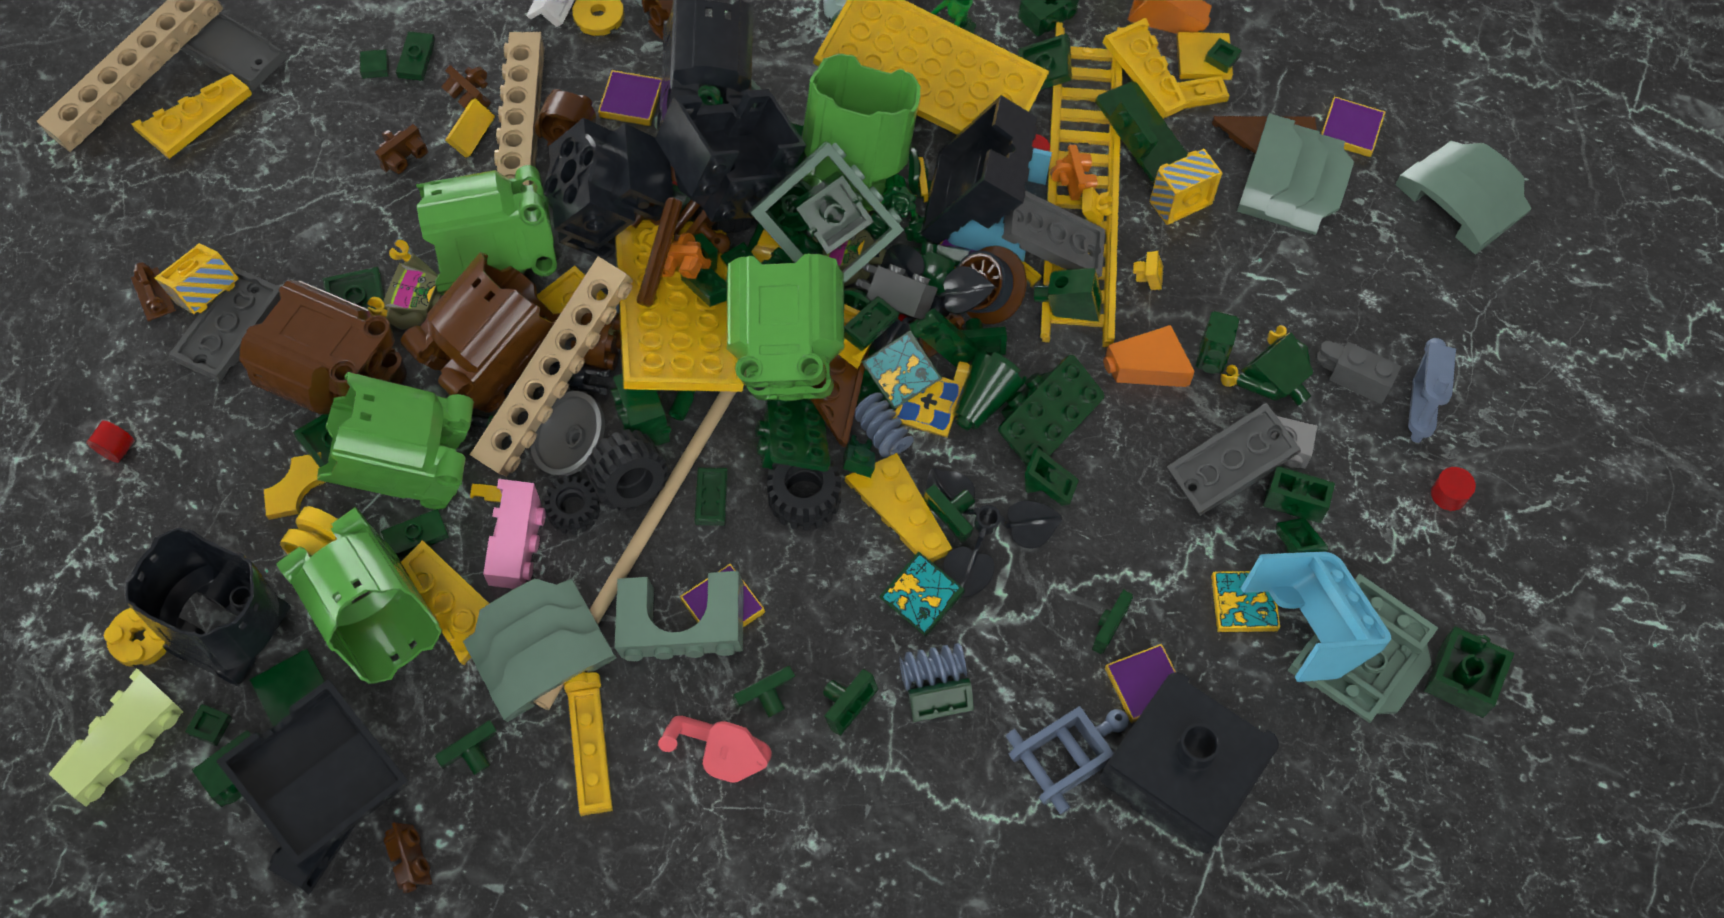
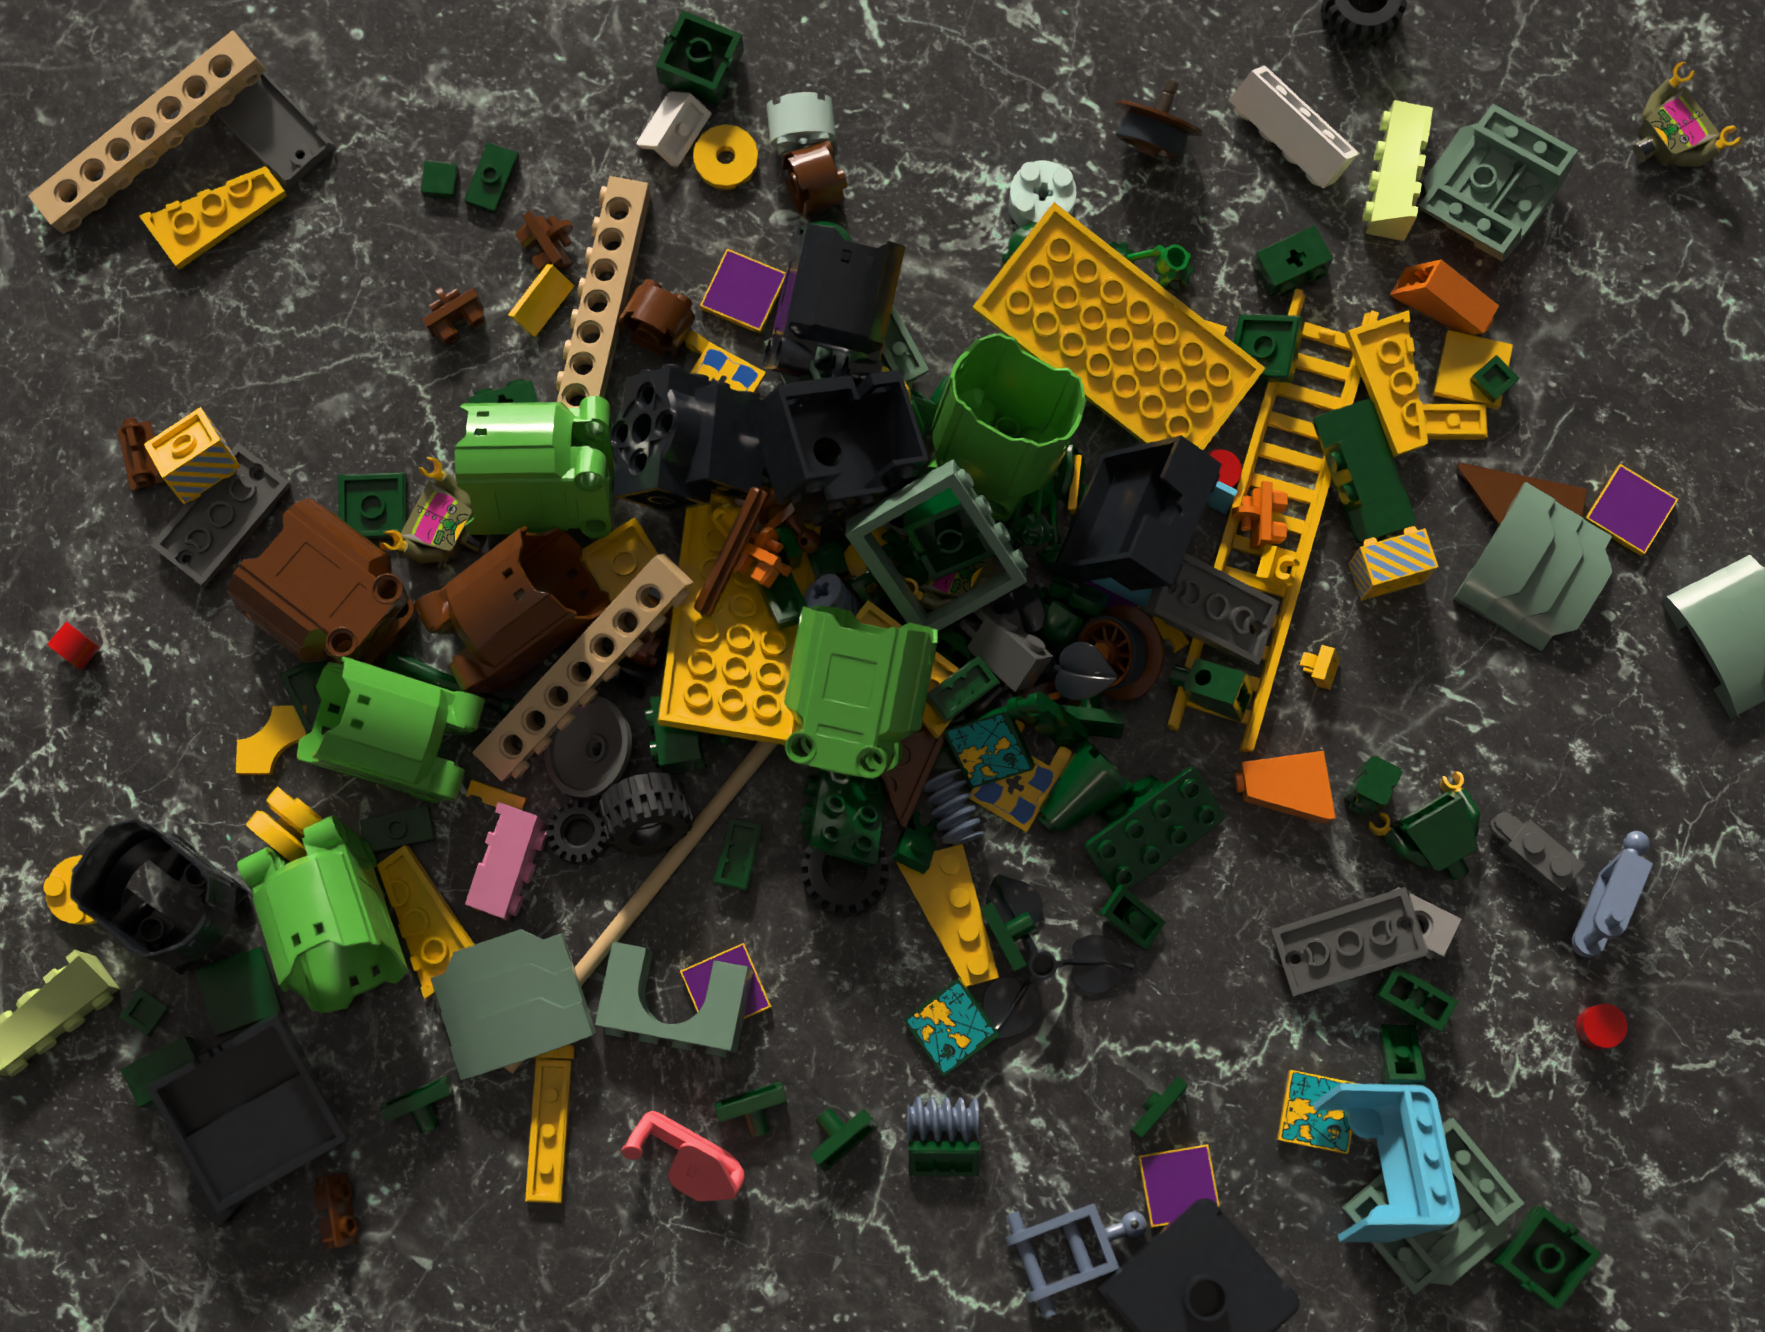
camera: 15 degrees right, 15 degrees up
(705, 91) = (826, 364): dark green plate -> none

